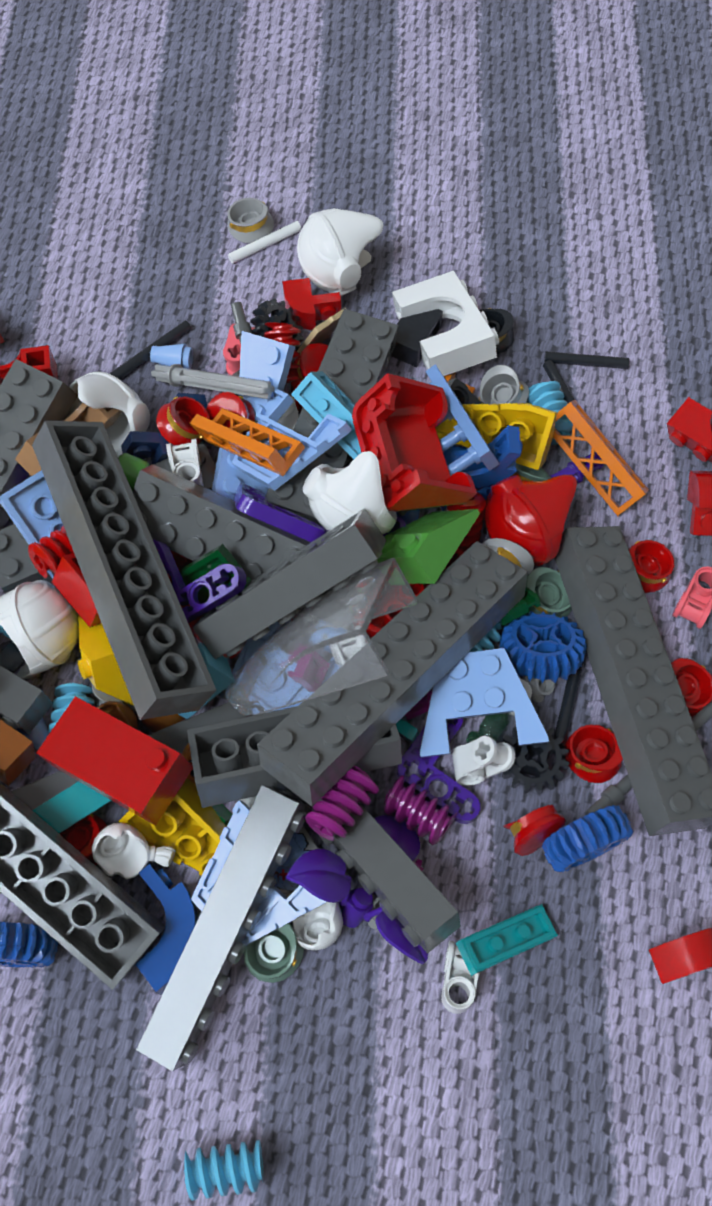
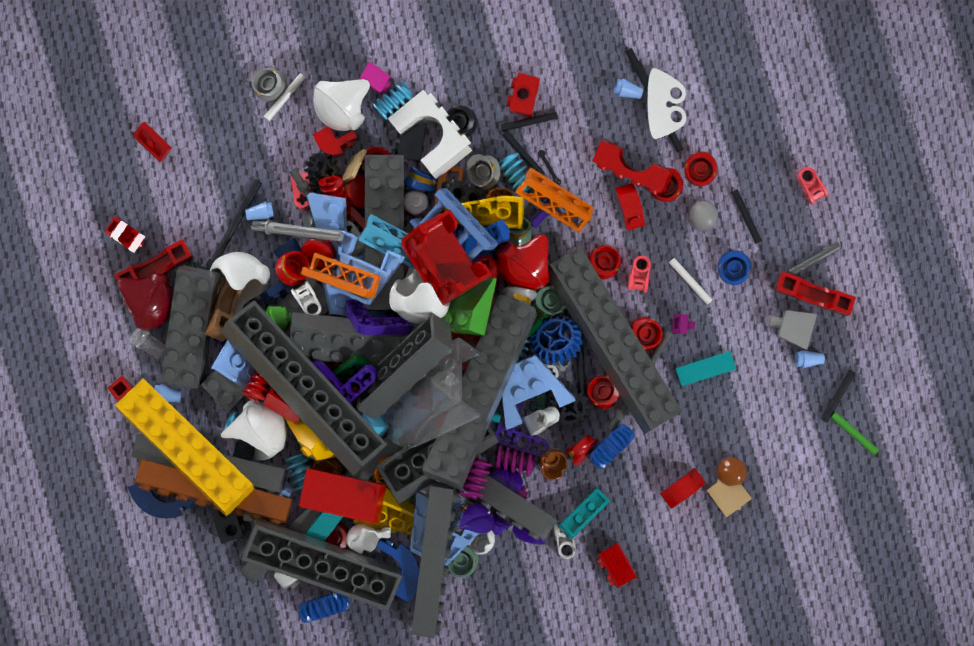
camera: 20 degrees left, 20 degrees up
(70, 238) = (152, 141): none -> red plate
(393, 246) = (378, 79): none -> dark pink slope
(405, 276) = (393, 101): none -> medium azure piece
(409, 367) = (420, 181): none -> blue piece
(479, 838) = (552, 464): none -> dark orange hair
(539, 1054) = (616, 565): none -> red brick
(589, 322) = (523, 106): none -> red brick
(592, 404) = (541, 154): none -> black hinge

